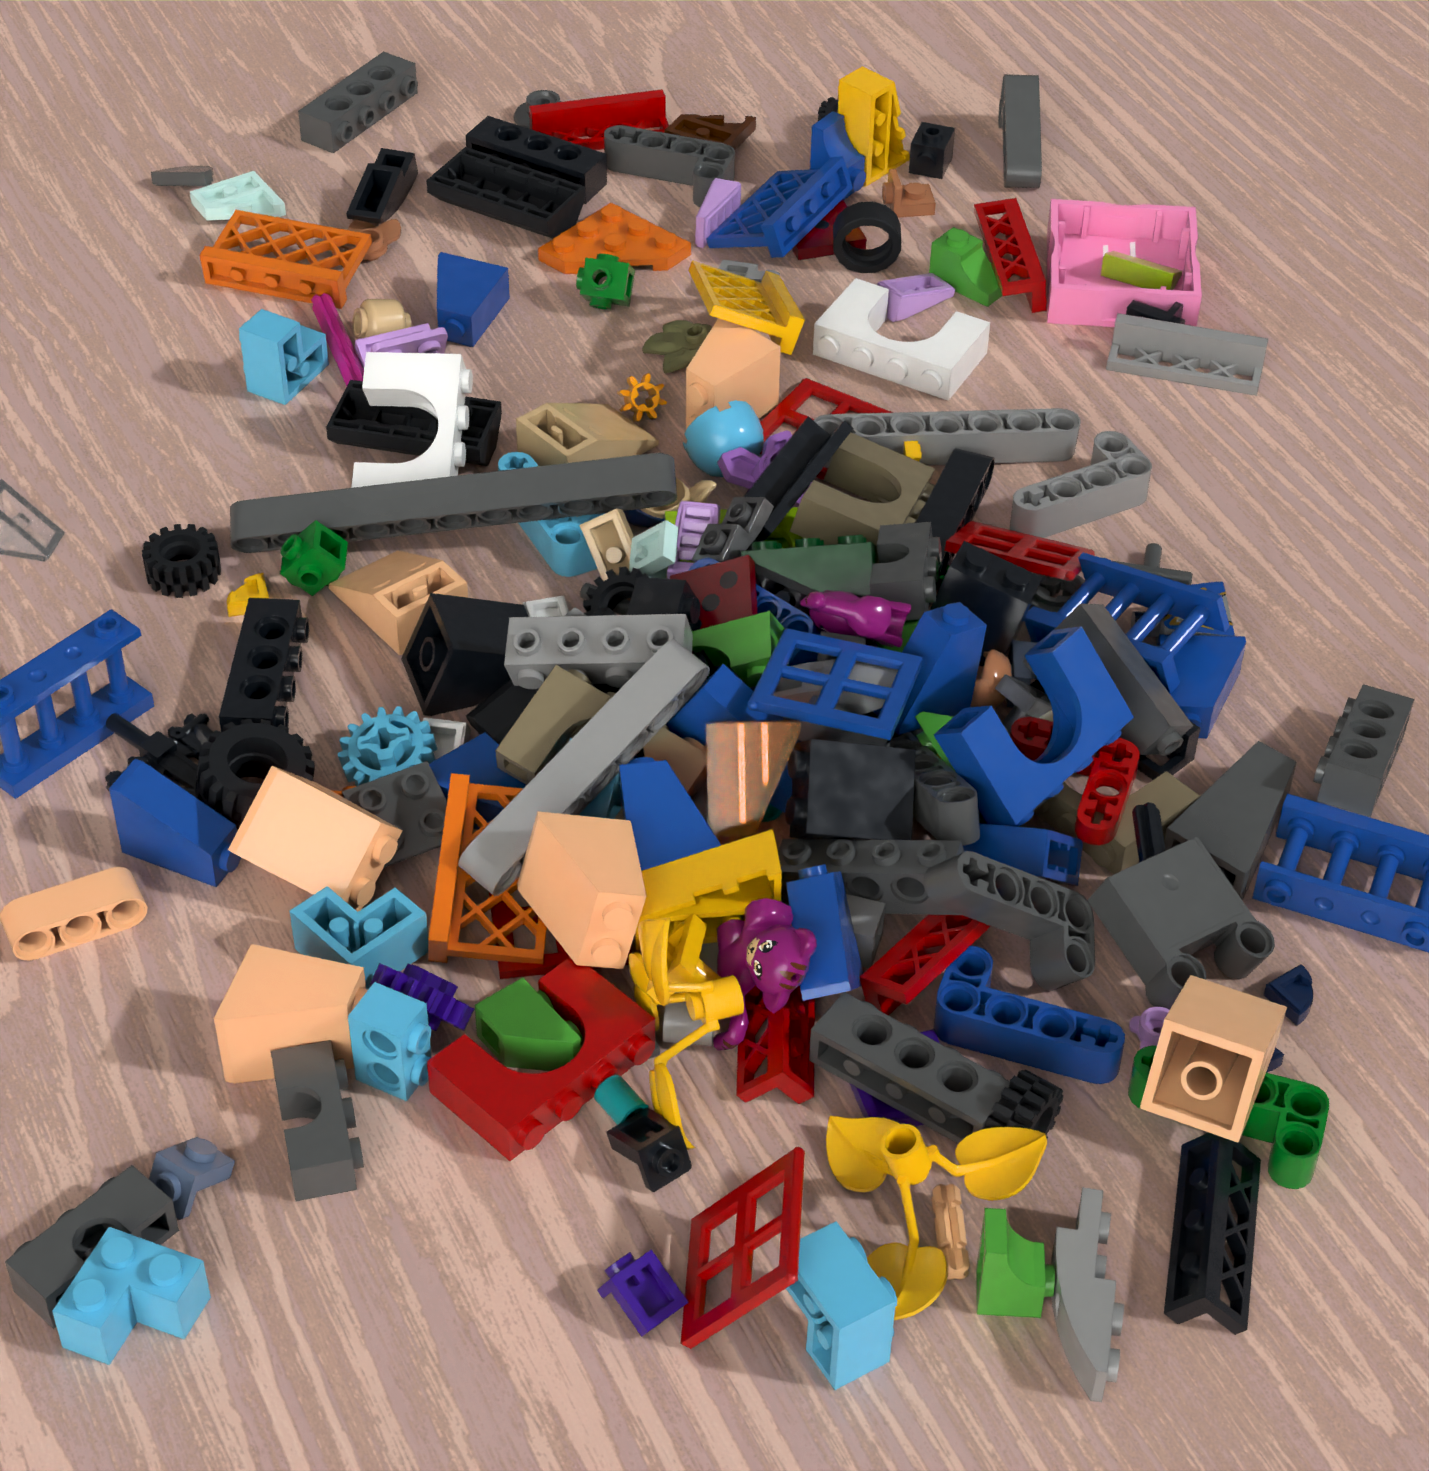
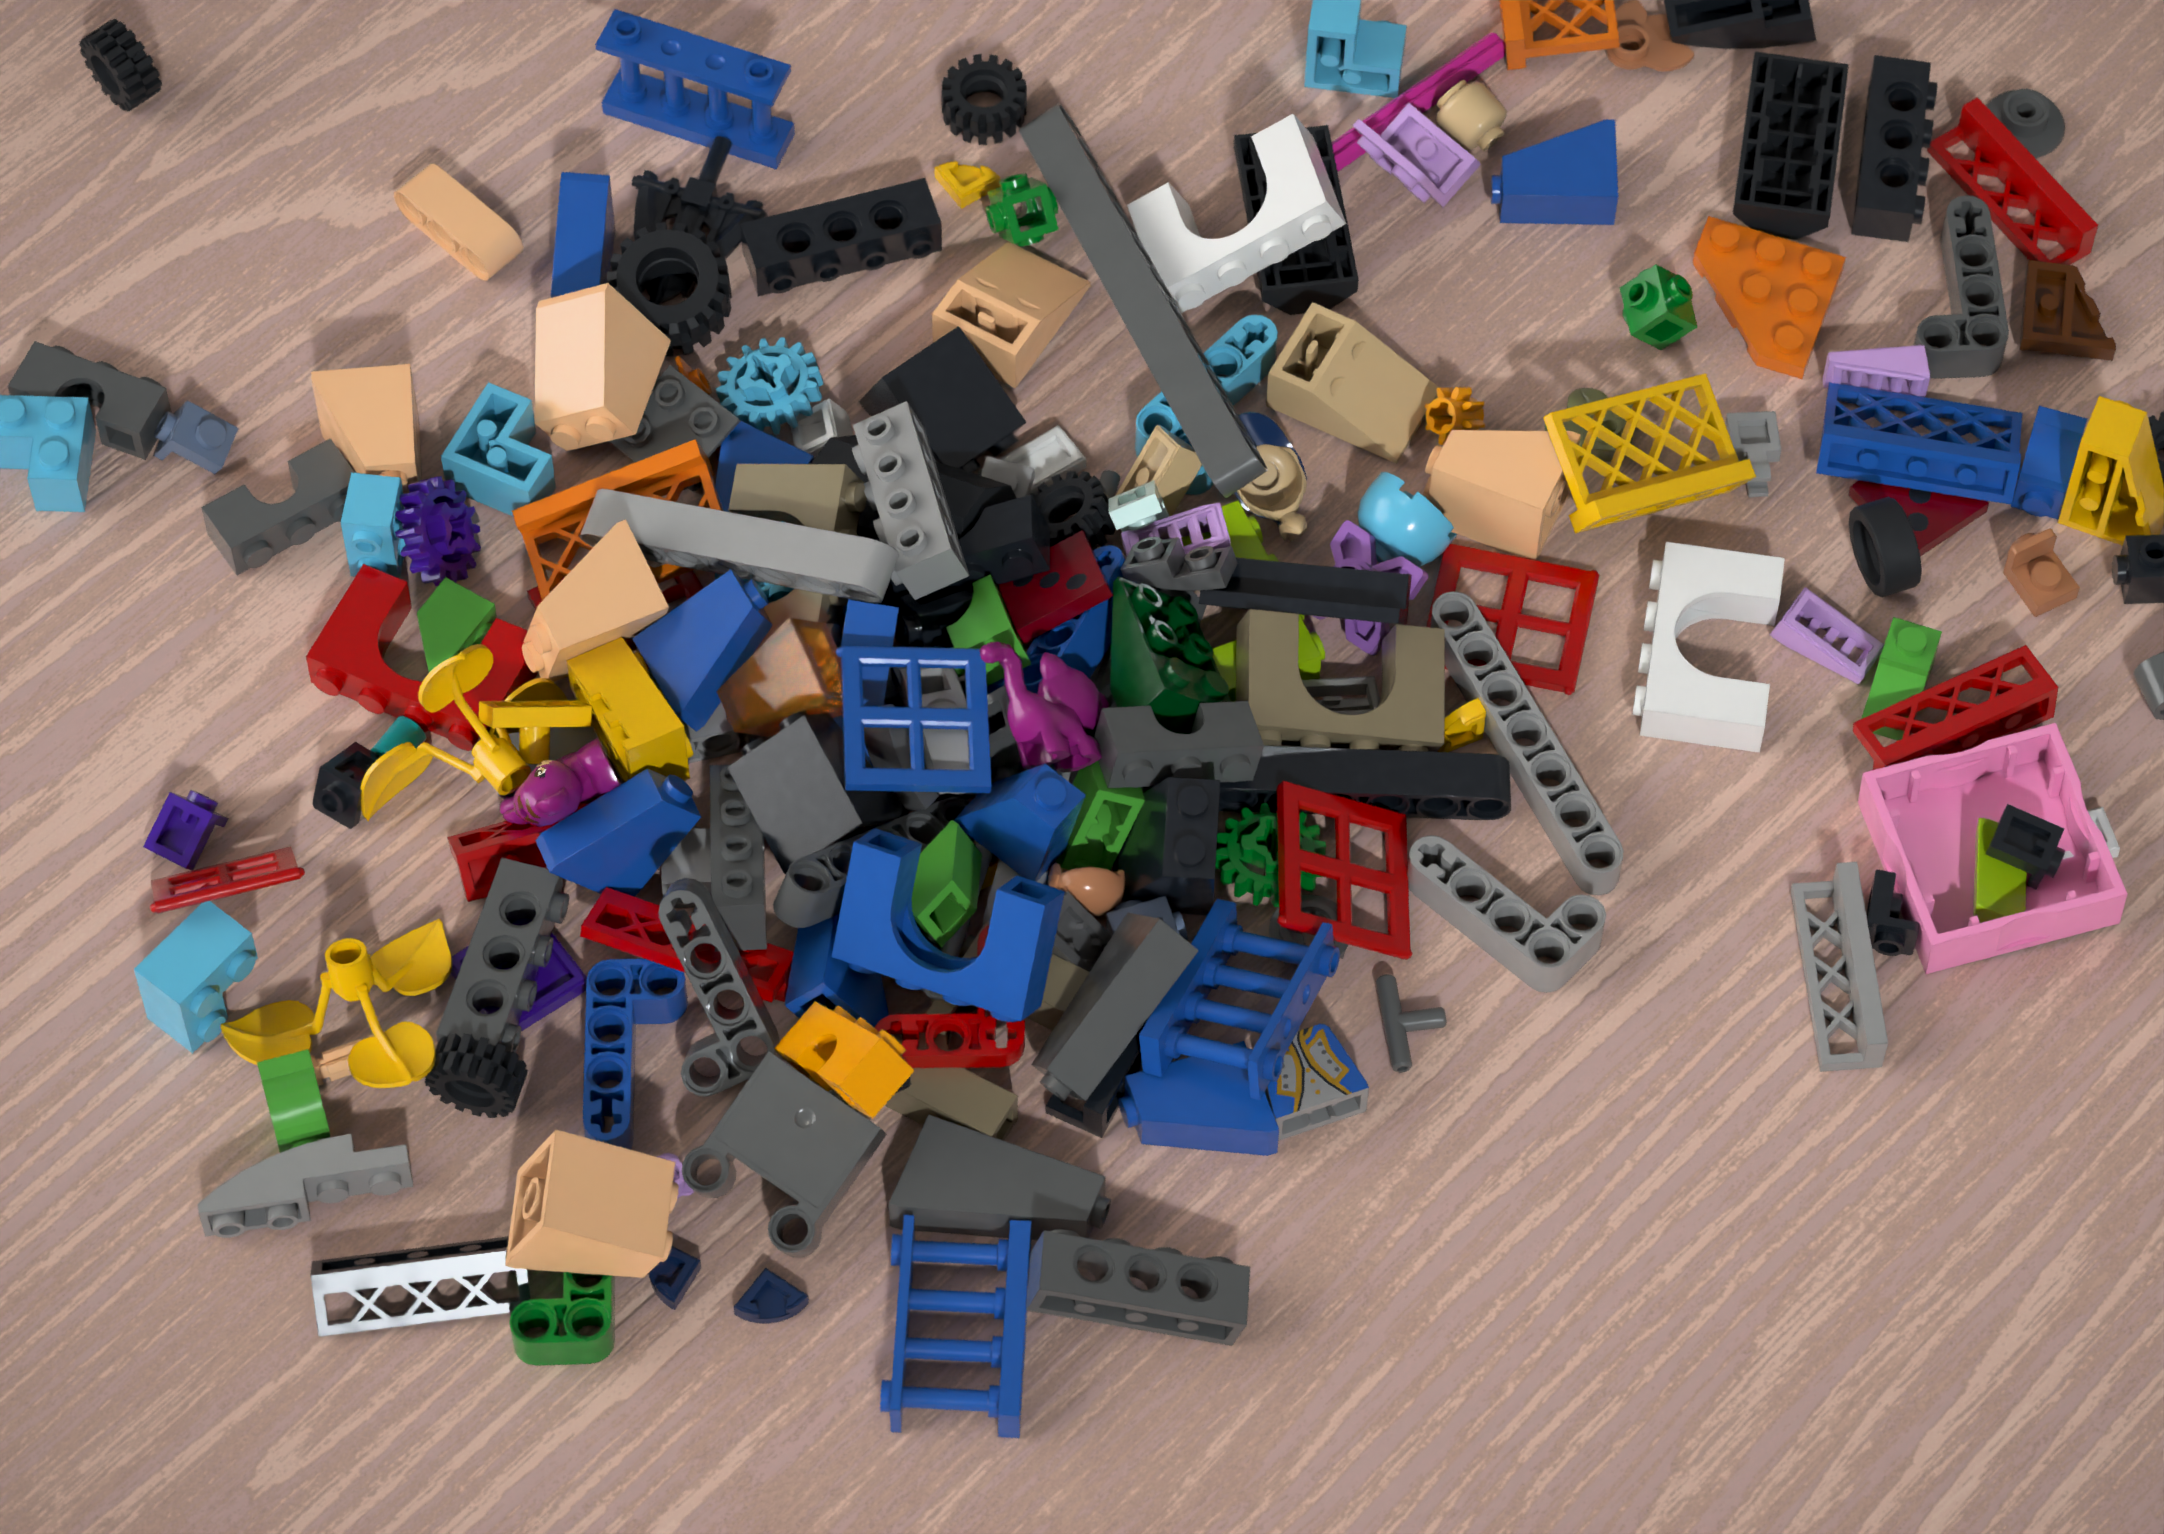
camera: 70 degrees right, 15 degrees up
(1097, 848) = (846, 1057): none -> light orange arch
(1135, 240) = (2027, 844): none -> black bracket

